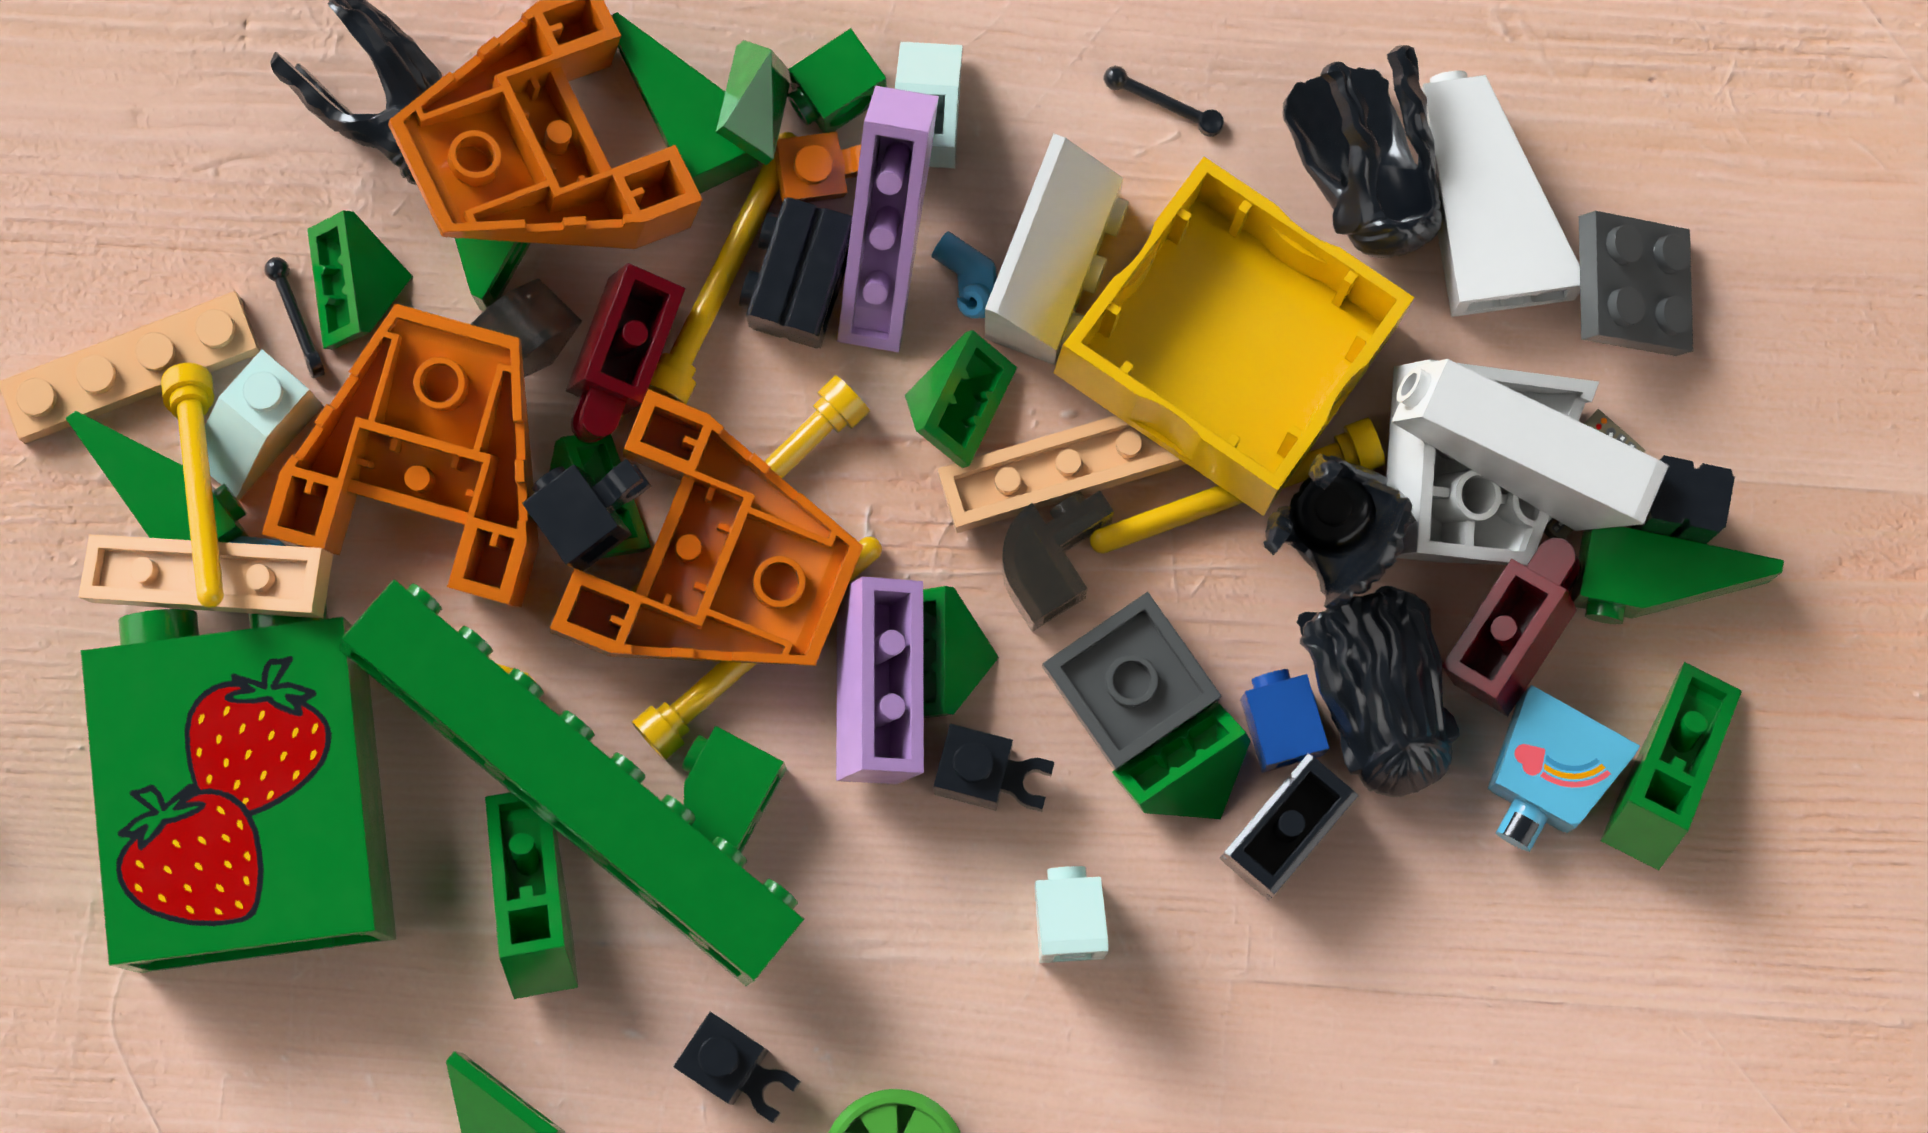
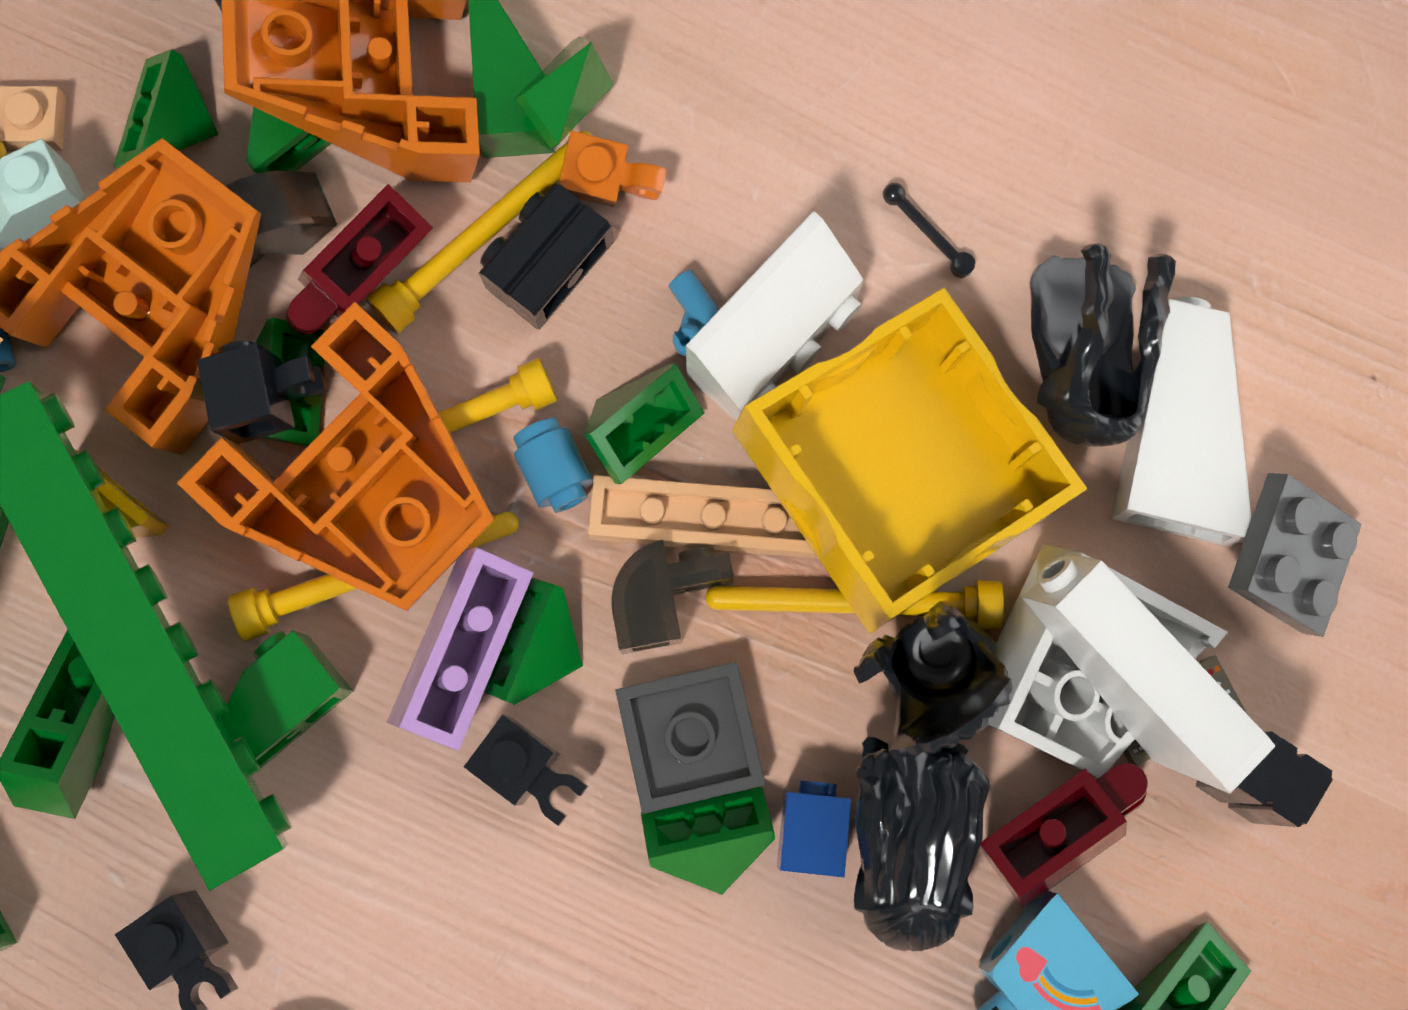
camera: 20 degrees right, 0 degrees up
(278, 270) = (104, 85): black hinge -> none
(834, 83) = (646, 104): green brick -> none
(886, 217) = (637, 227): lavender slope -> none
(892, 474) = (552, 465): none -> dark azure brick
(936, 72) = (715, 152): light aqua slope -> none
(1070, 916) = (540, 940): light aqua slope -> none
(1288, 826) = (777, 936): black brick -> none
(1647, 572) = (1207, 827): green slope -> none

